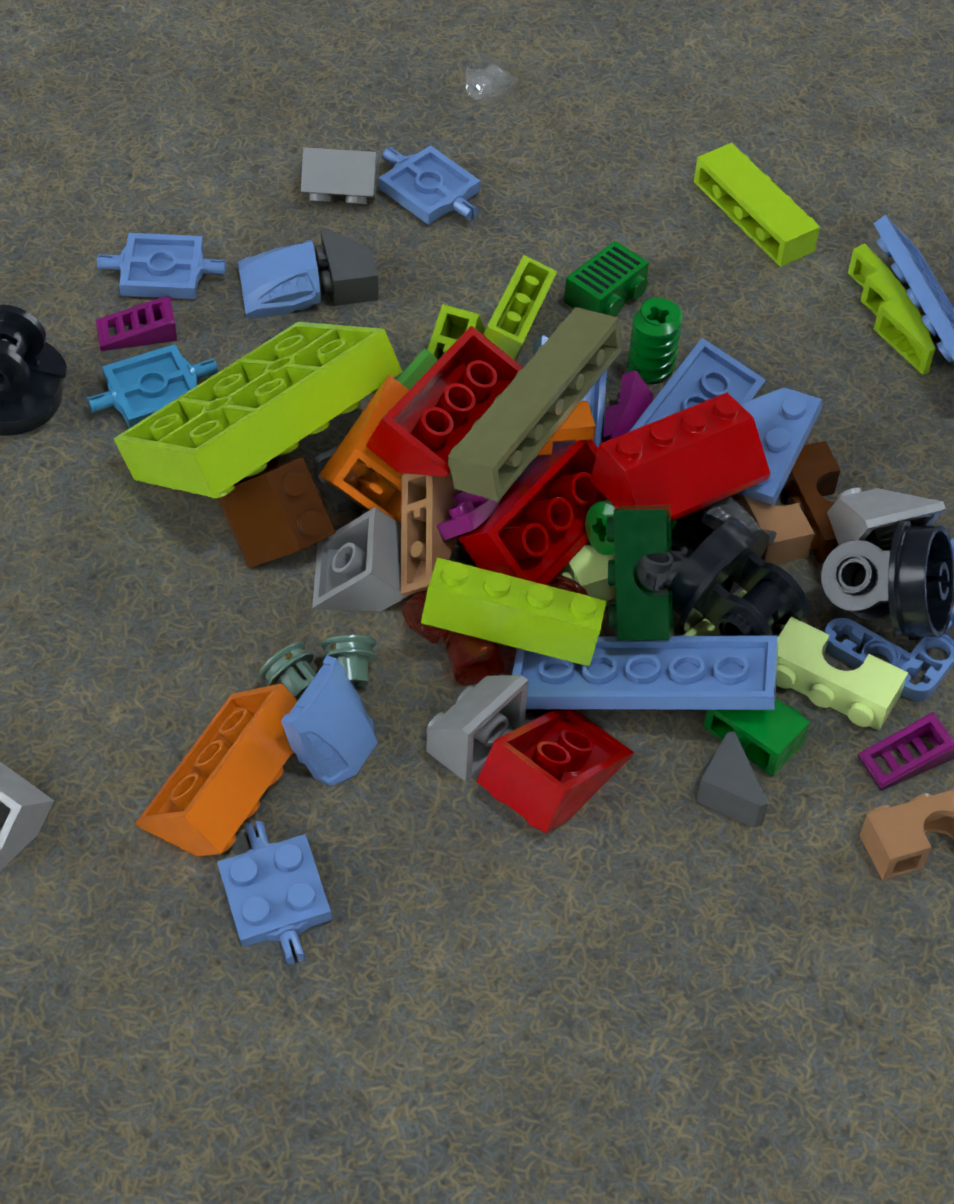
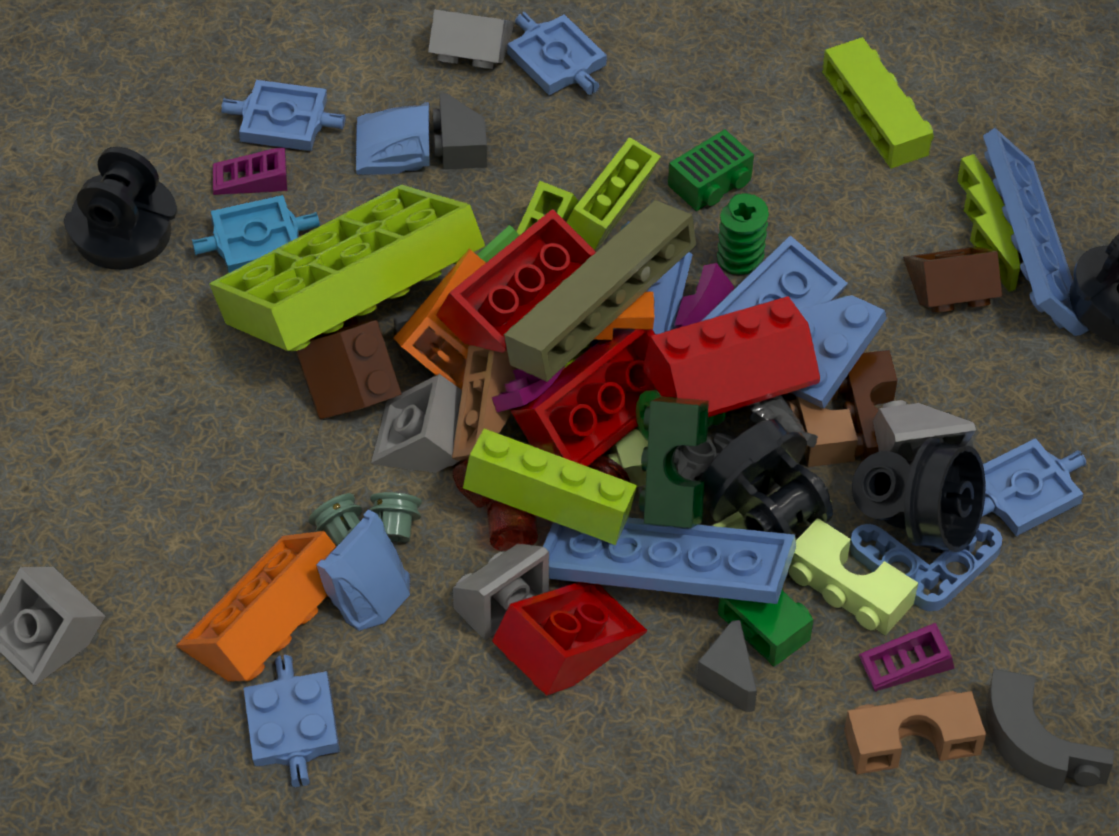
camera: 10 degrees right, 0 degrees up
(871, 364) = (955, 277): none -> reddish brown slope

